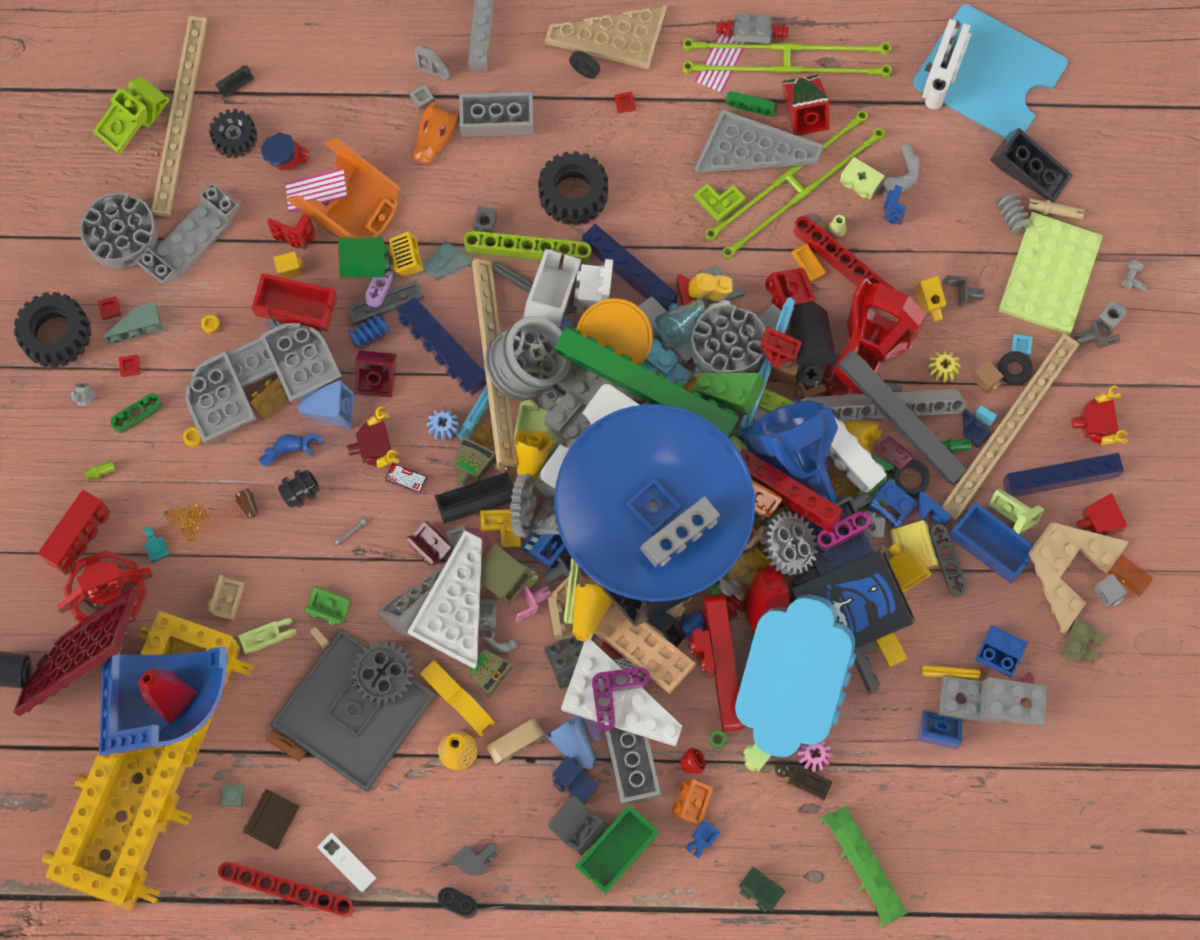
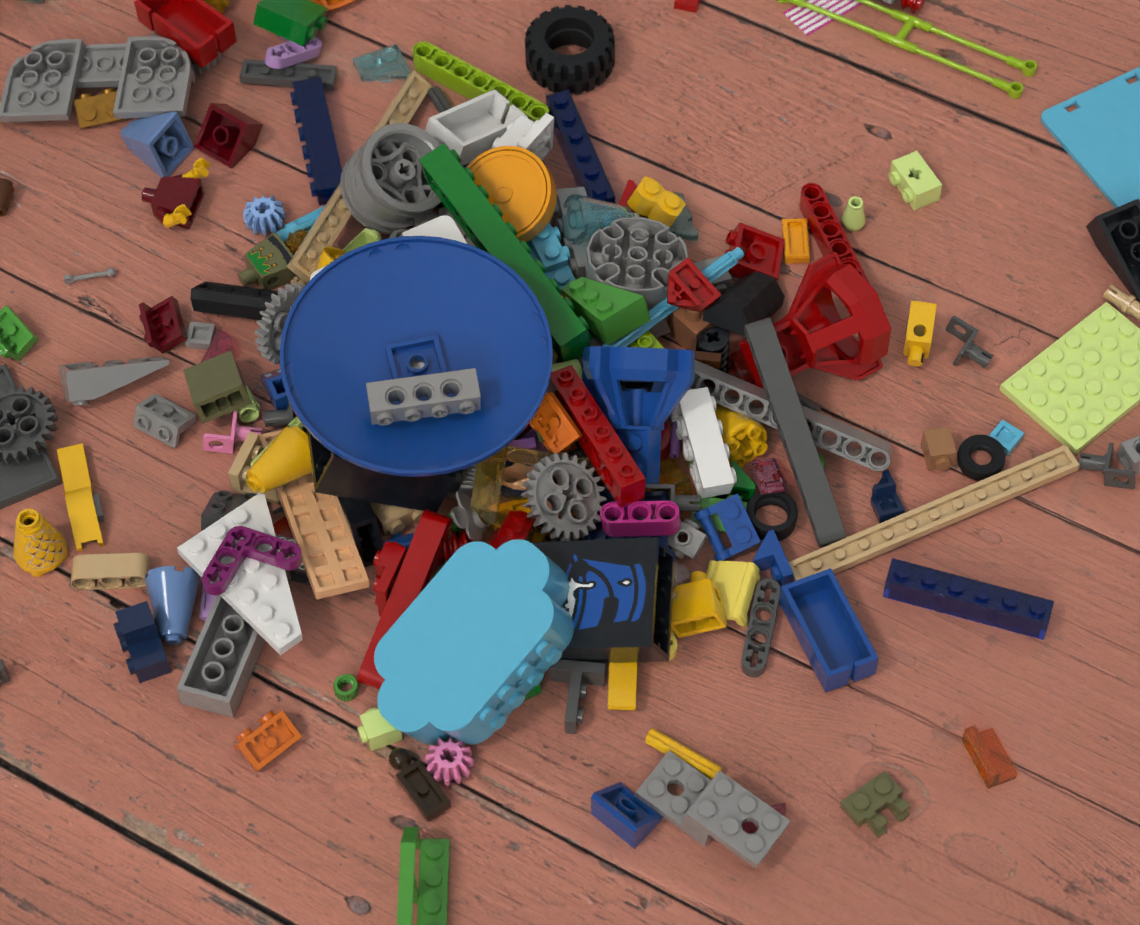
camera: 30 degrees right, 15 degrees down
(210, 324) = (93, 18): yellow tile -> none
(289, 443) = (89, 160): blue piece -> none
(299, 488) = (66, 203): black piece -> none
(368, 331) = (250, 92): blue piece -> none
(405, 255) = (342, 37): yellow brick -> none
(406, 478) = (187, 251): tile -> none
(453, 606) = (134, 393): white wing -> none
(485, 214) = (453, 40): dark grey brick -> none
(489, 672) = (132, 482): torso -> none
(500, 521) = (243, 333): yellow plate -> none
(502, 647) = (167, 467): light grey piece -> none
(576, 825) = (110, 690): dark grey bracket -> none
(617, 850) = (137, 743): green piece -> none
(693, 761) = (298, 694): red cone -> none
(704, 836) = (254, 784): blue plate -> none
(718, 205) = (731, 139): lime plate -> none
(747, 144) = (805, 93): light grey wing -> none
(751, 104) = (839, 62): green beam -> none
(761, 889) = (280, 882): clear green brick -> none
(802, 192) = (829, 145): lime bar -> none
(806, 104) = (895, 82): red slope -> none
(894, 211) = (934, 219): blue bracket -> none
(906, 181) = (964, 206): light grey piece -> none
(939, 371) = (890, 414): light yellow gear -> none
(940, 78) = (1089, 102): white hinge -> none
(957, 445) = (852, 506): green pin -> none
(985, 416) = (908, 490): medium azure tile -> none
(1001, 651) = (761, 757): blue slope -> none
(1012, 213) = (1081, 292): light grey piece -> none
(1015, 511) = (881, 612): yellowish green bracket -> none
(1054, 554) = (902, 672): tan wing -> none
(1100, 420) = (1056, 557): red torso -> none
(1103, 517) = (990, 671): red torso -> none
(1110, 591) = (949, 759): light grey brick -> none

